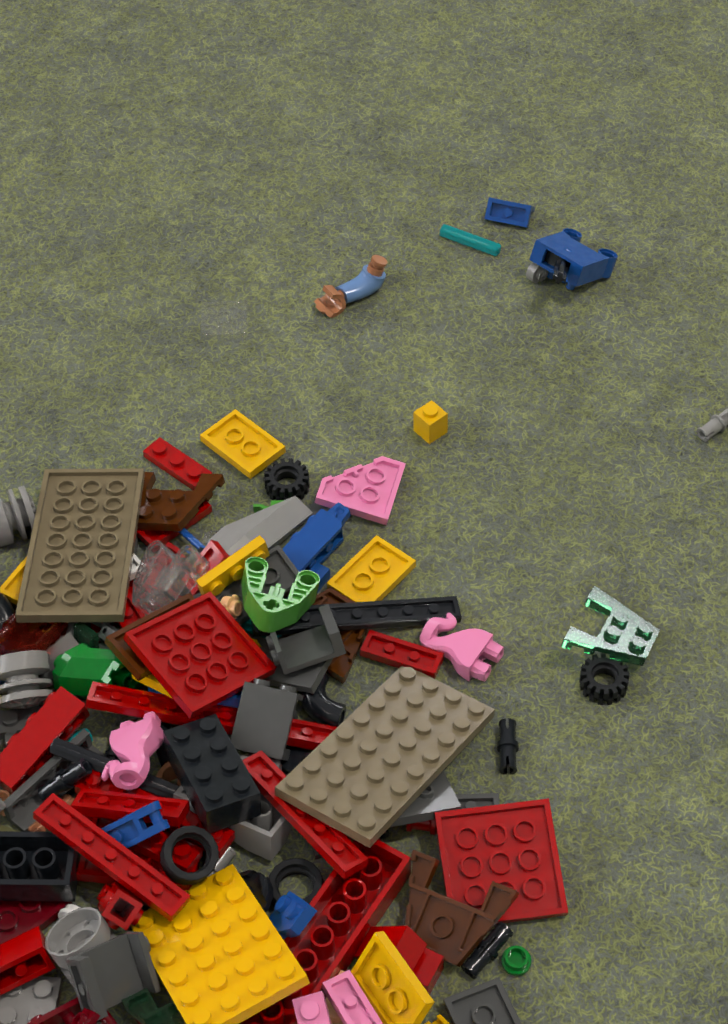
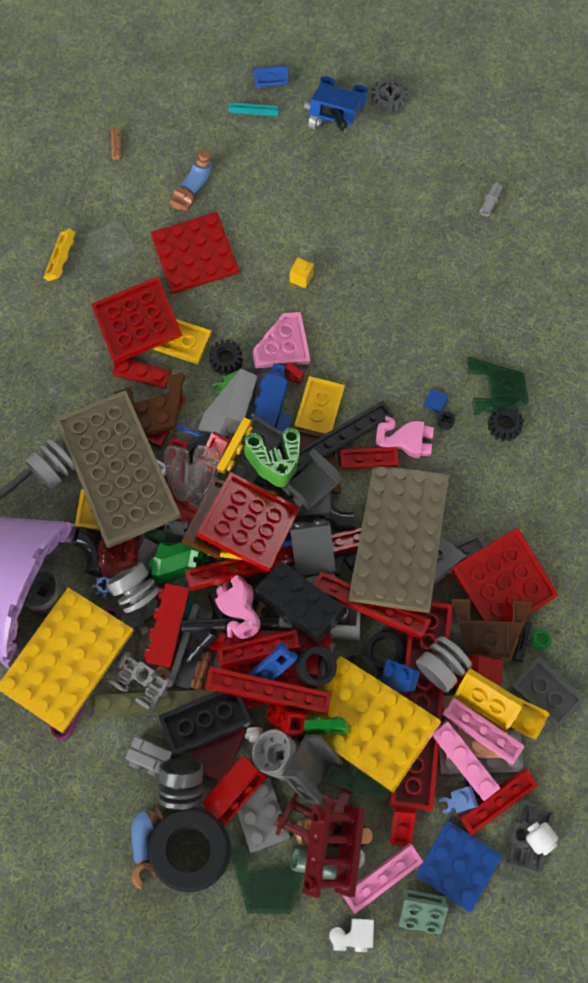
camera: 25 degrees left, 20 degrees up
(156, 313) = (59, 255): none -> yellow plate
(161, 931) = (320, 726): none -> green plate
(202, 405) = (136, 320): none -> red plate
(232, 605) = (248, 474): light nougat plate -> none
(287, 225) = (116, 144): none -> nougat axle
(315, 362) = (194, 252): none -> red plate
(352, 914) = (447, 660): none -> light grey wheel
(359, 526) = (294, 374): none -> red plate
(507, 746) = (467, 496): black pin -> none
(525, 622) = (435, 401): none -> blue tile
(533, 646) = (448, 415): none -> black bush
(645, 273) = (385, 88): none -> dark grey gear

